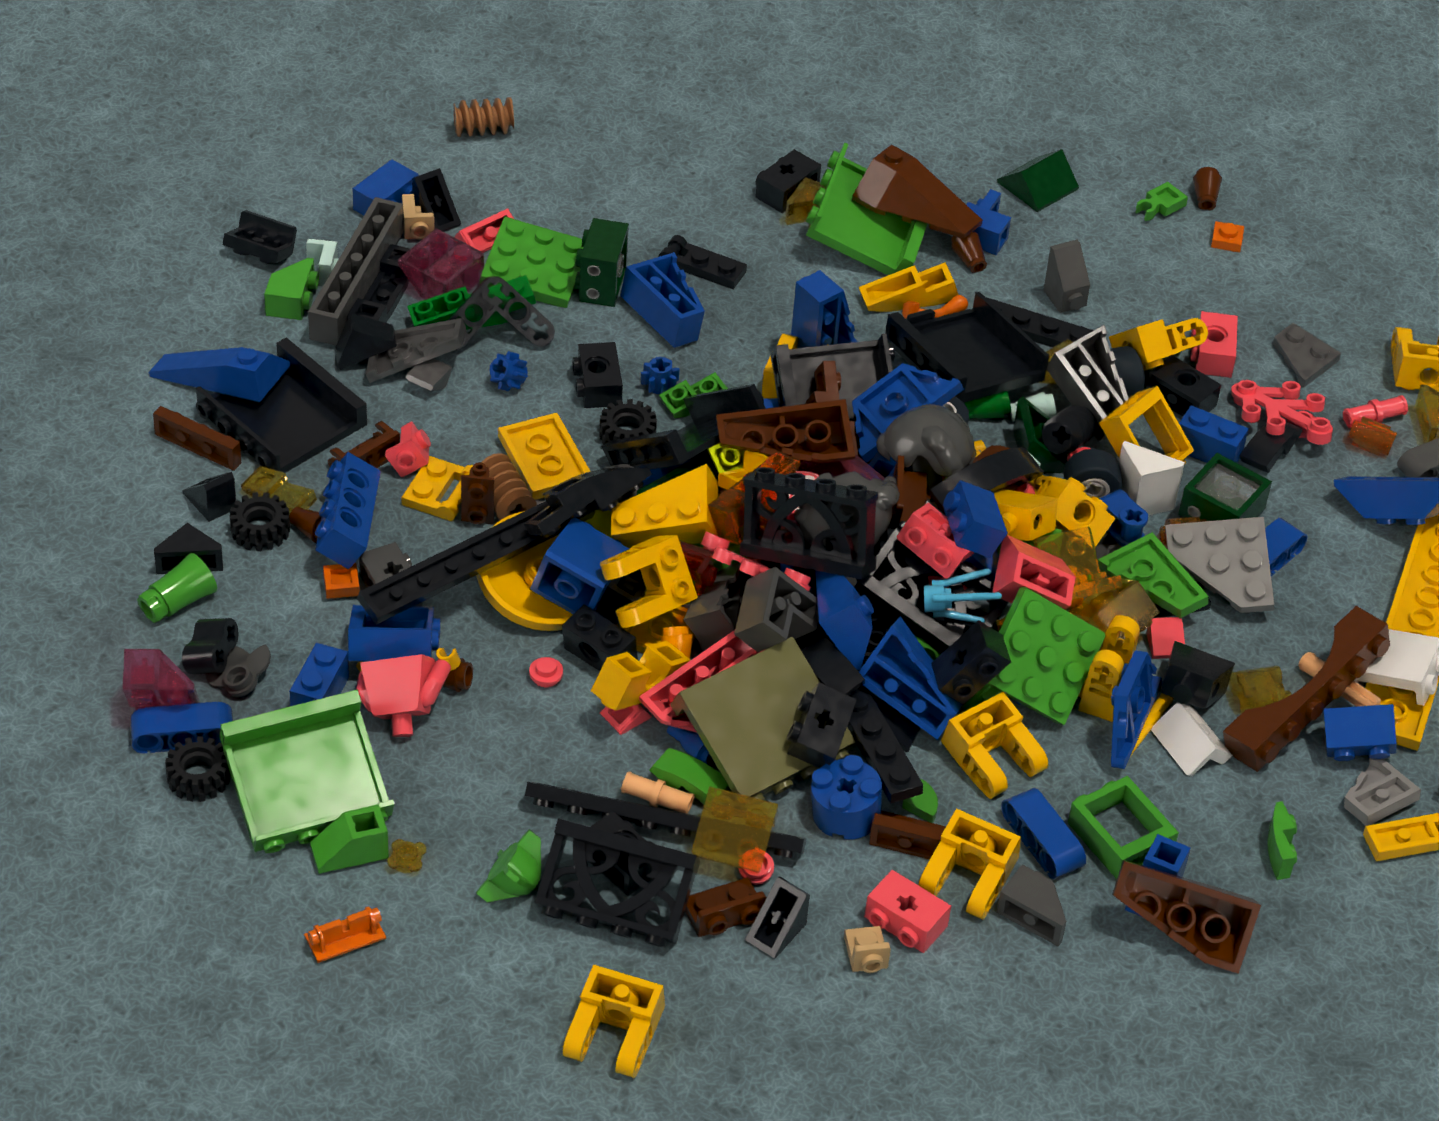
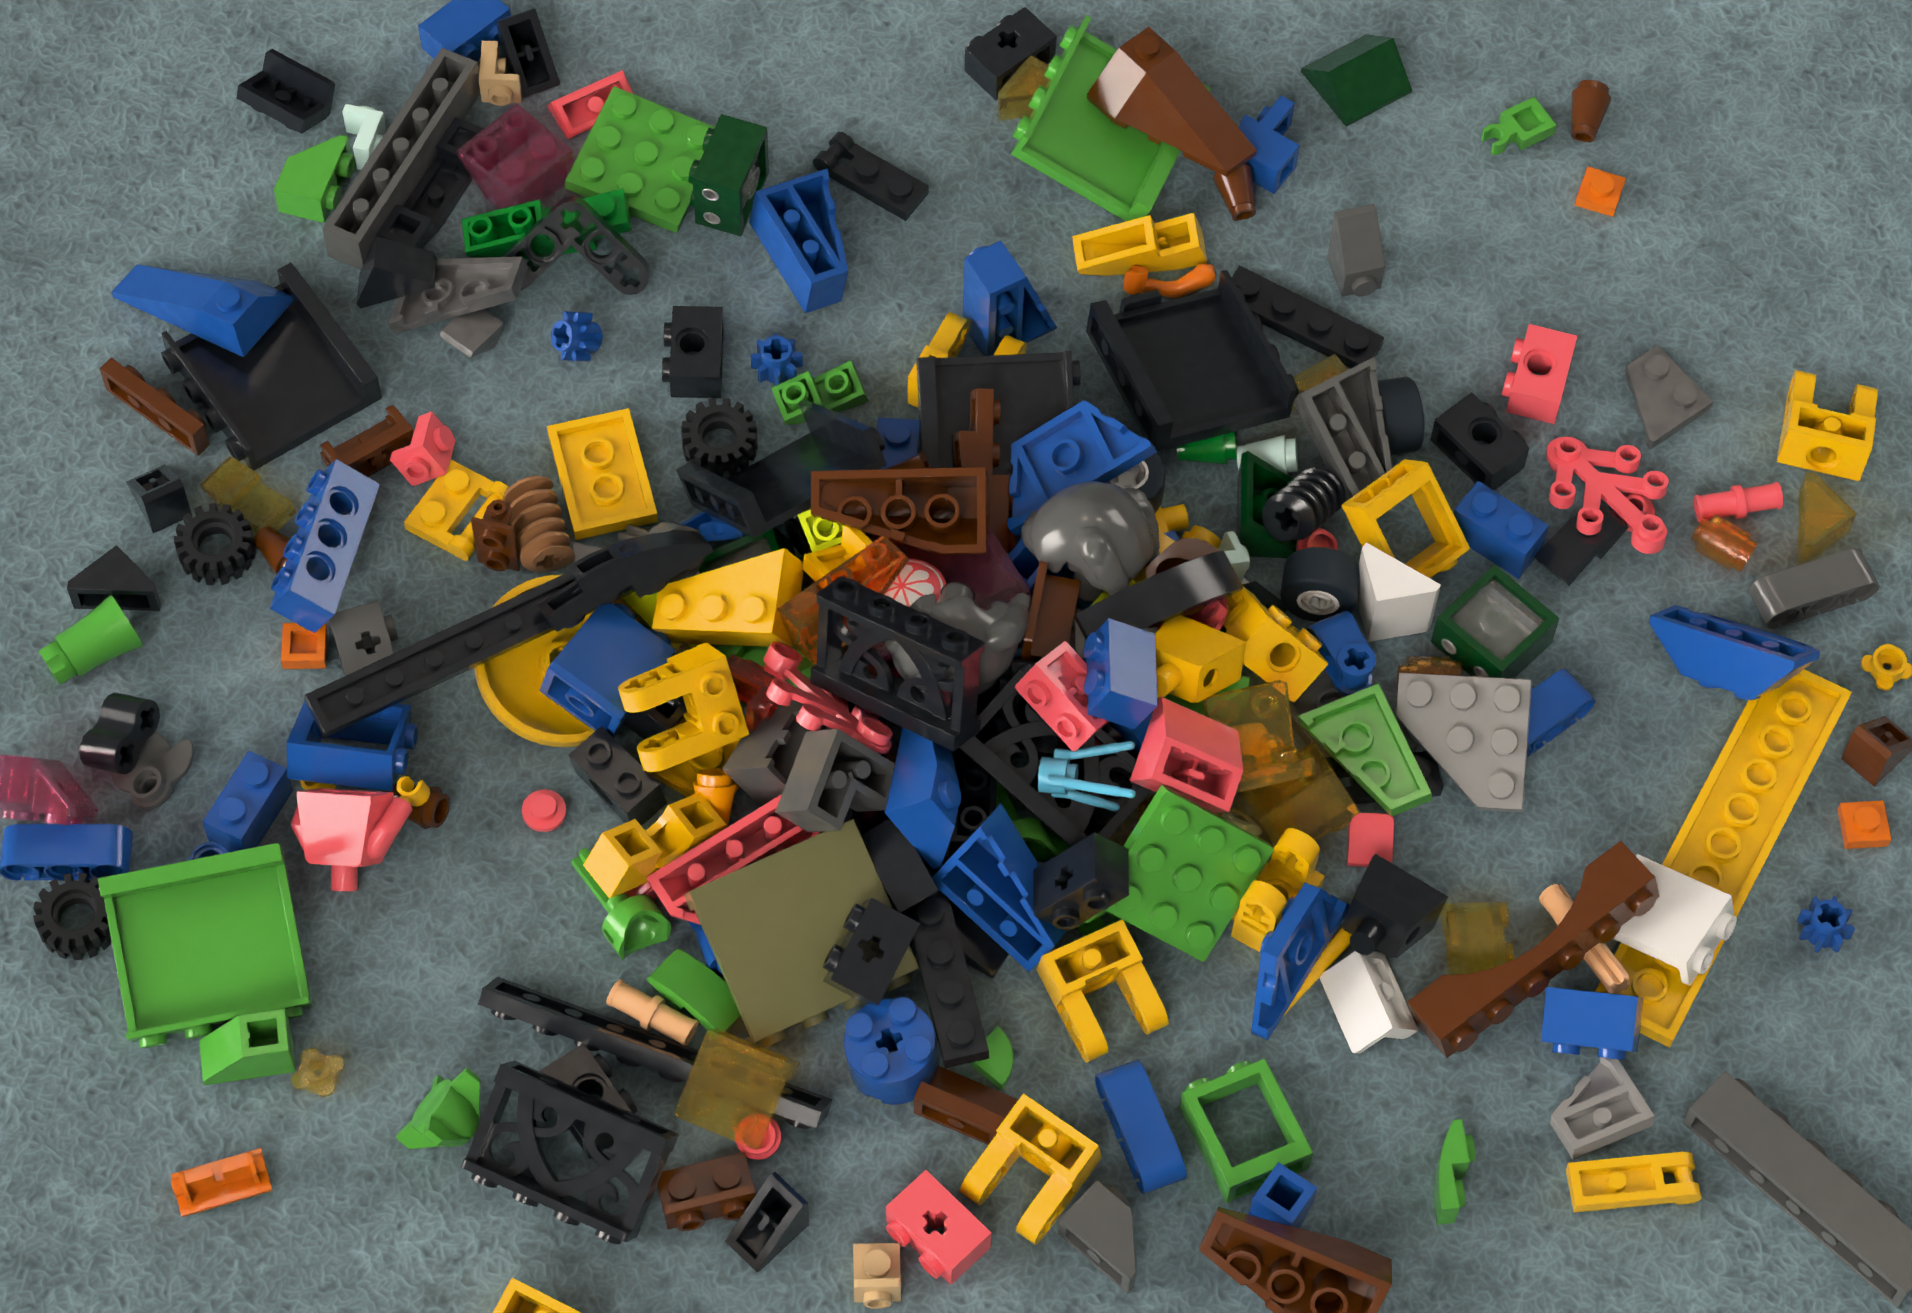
camera: 10 degrees right, 15 degrees up
(627, 731) = (630, 921): none -> bright green piece
(1159, 341) = (1455, 373): yellow brick -> none

